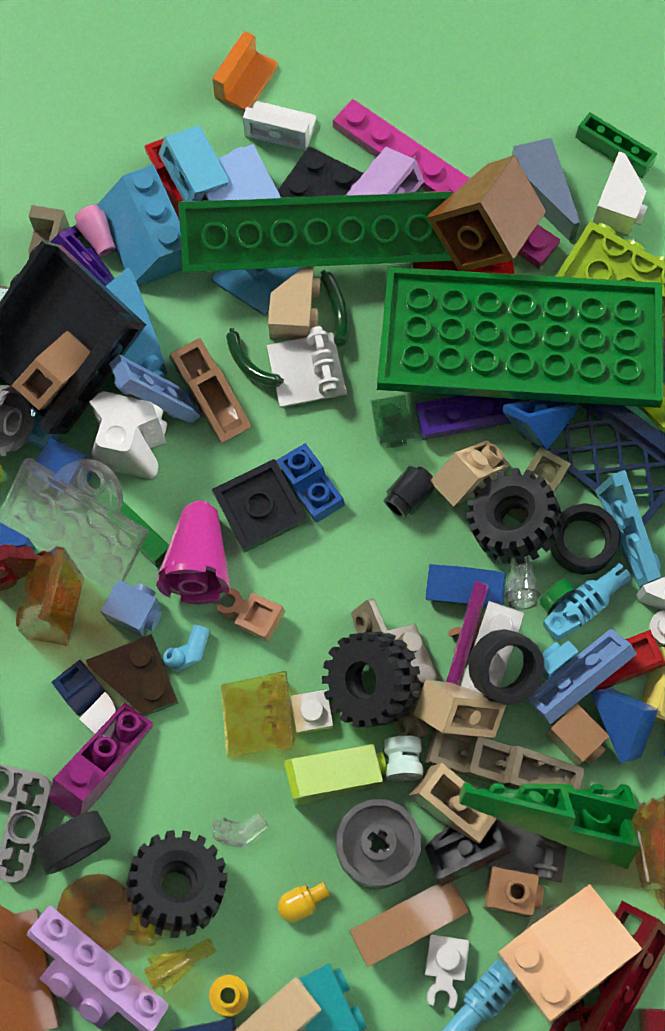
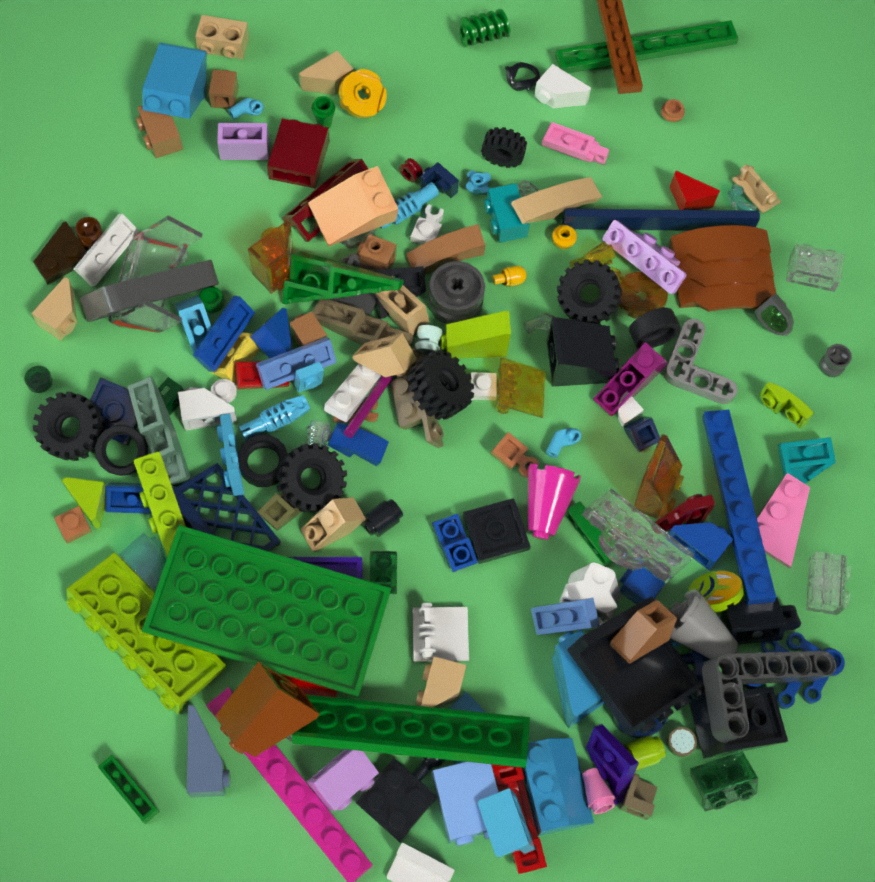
camera: 175 degrees left, 5 degrees down
(132, 608) = (599, 472): medium blue brick -> none
(137, 675) = (600, 432): dark brown wing -> none
(175, 781) = (580, 353): none -> black slope
(210, 390) = (521, 629): medium nougat slope -> none
(246, 366) = (487, 646): dark green piece -> none
(339, 308) = (403, 675): dark green piece -> none
(526, 682) = (352, 380): black tyre -> none
(539, 419) = (276, 541): blue slope -> none
(555, 595) = (295, 424): green tile -> none
(621, 198) = (143, 732): white slope -> none

